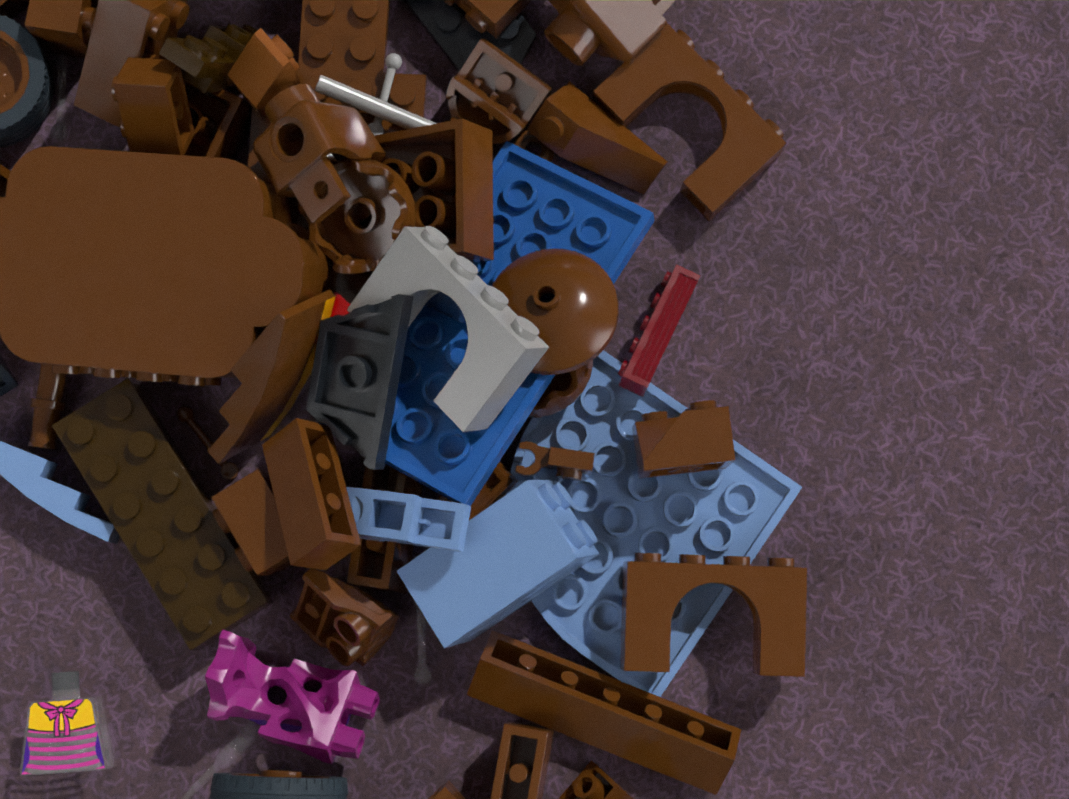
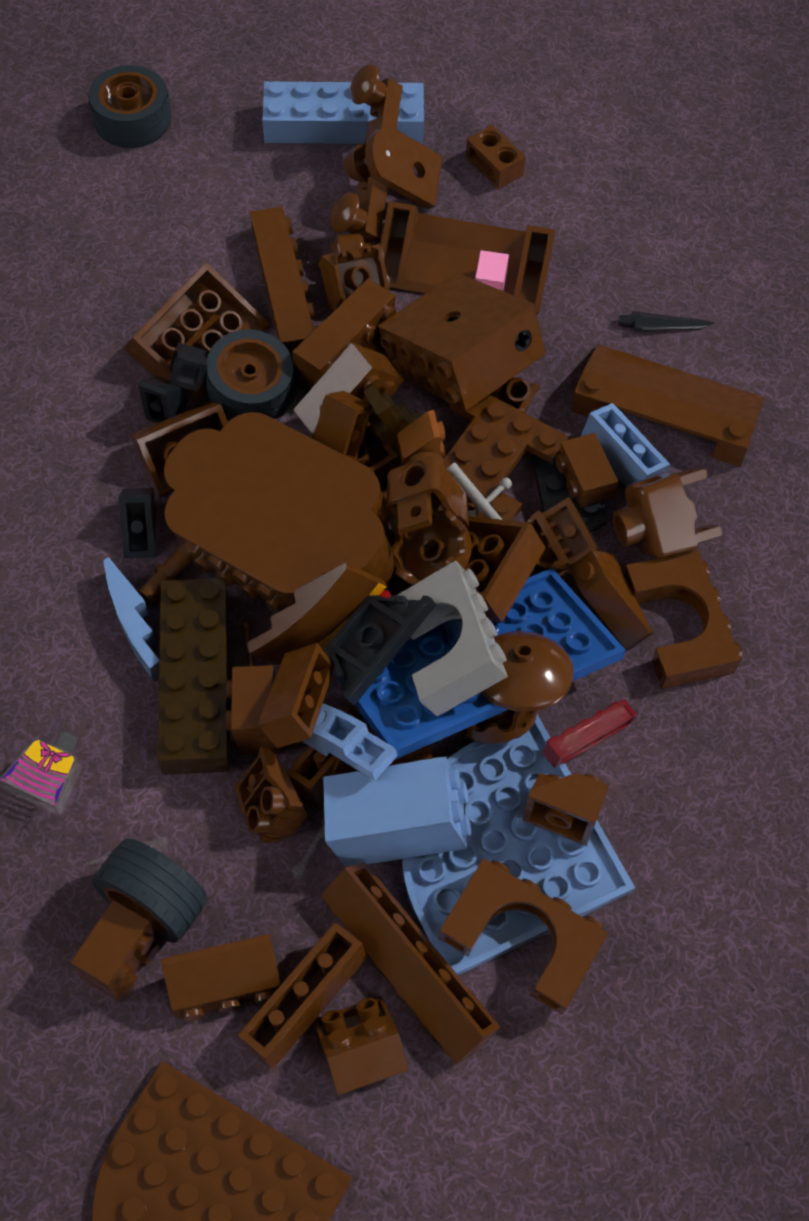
camera: 30 degrees right, 20 degrees down
(319, 720) = (204, 851): magenta hips -> none
(567, 463) = (477, 777): reddish brown plate -> none

